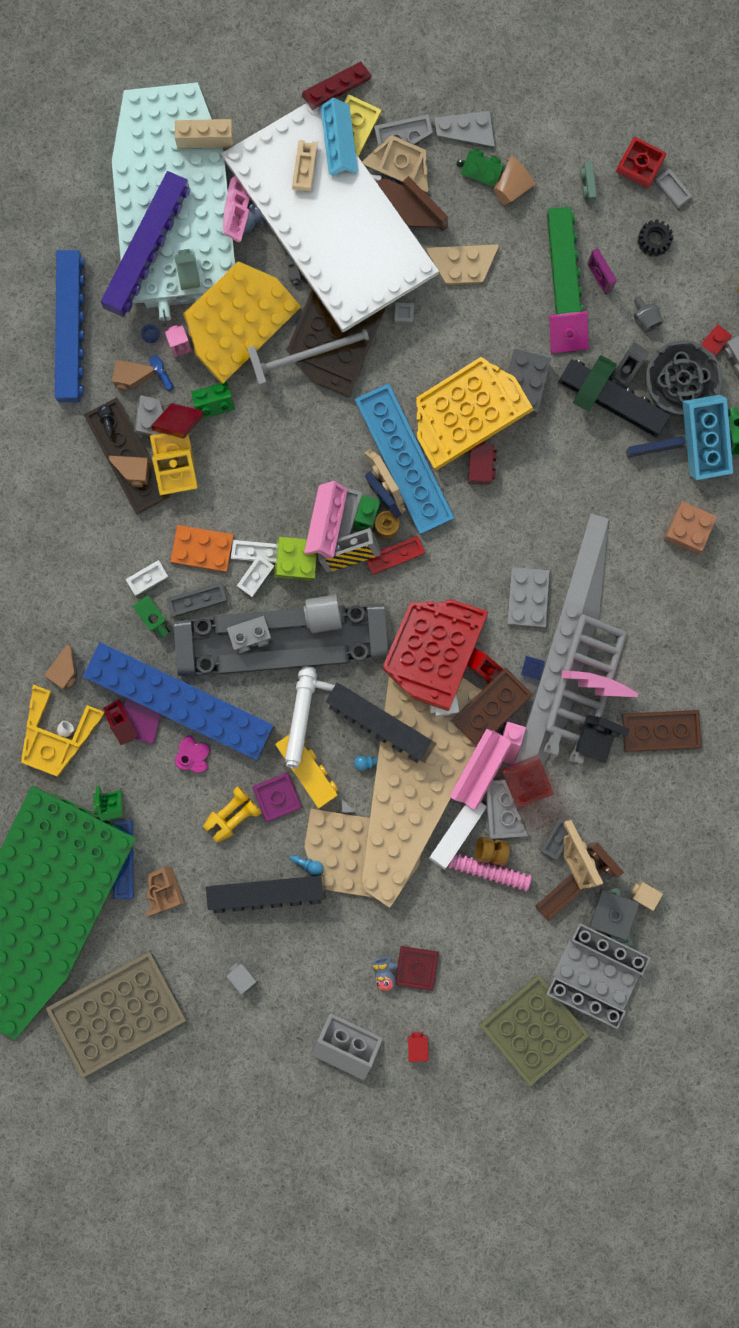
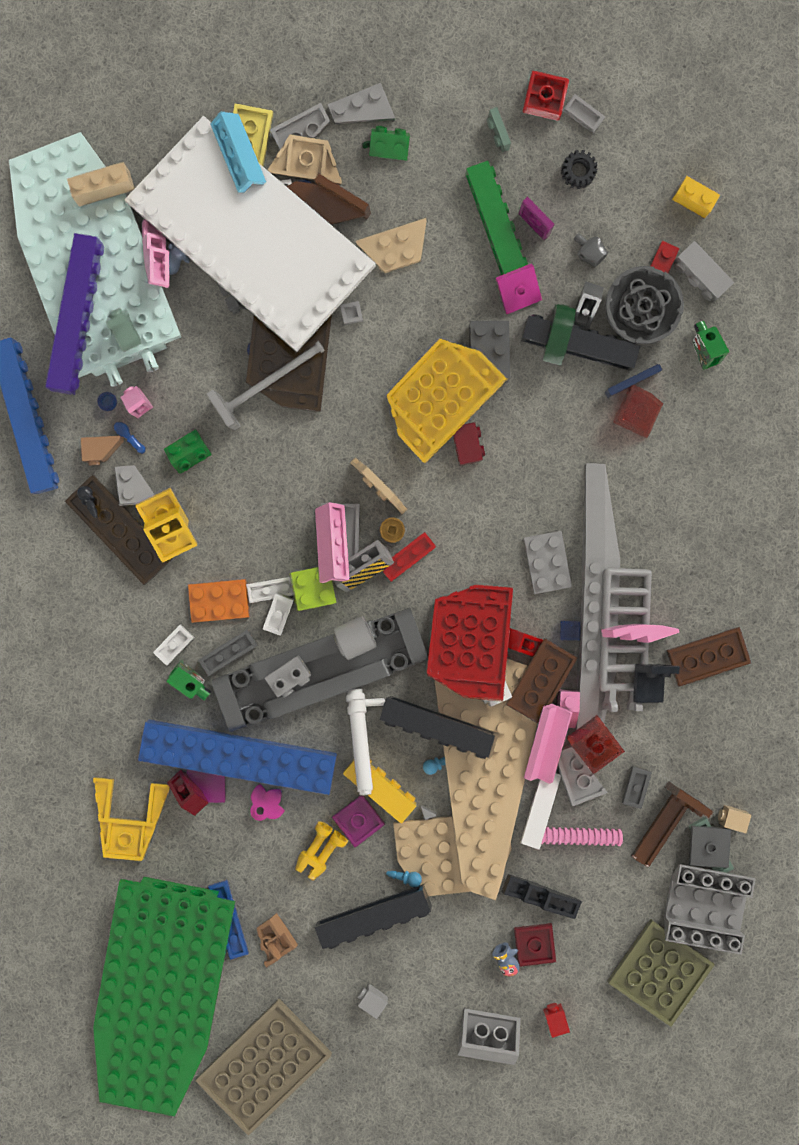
camera: 10 degrees left, 5 degrees up
(63, 669) = (118, 756): medium nougat slope -> none
(65, 729) = (140, 811): white hinge -> none
(108, 805) = (198, 875): green bracket -> none
(133, 469) = (128, 544): medium nougat slope -> none
(177, 420) = (158, 483): dark red tile -> none
(237, 315) = (187, 363): yellow plate -> none
(304, 166) = (211, 190): tan plate -> none
(336, 85) = (220, 97): dark red plate -> none
(366, 513) = (369, 523): green torso -> none
(382, 494) = (380, 503): dark blue tile -> none
(404, 459) = (391, 459): dark azure plate -> none
(436, 921) = (541, 896): none -> black slope
(491, 851) = (577, 818): pearl gold wheel -> none
(513, 181) = (424, 149): medium nougat slope -> none
(578, 859) = (662, 804): tan wing -> none
(653, 477) = (638, 411): none -> clear red slope
(690, 527) = (687, 452): nougat brick -> none
(708, 437) = (684, 358): medium azure brick -> none

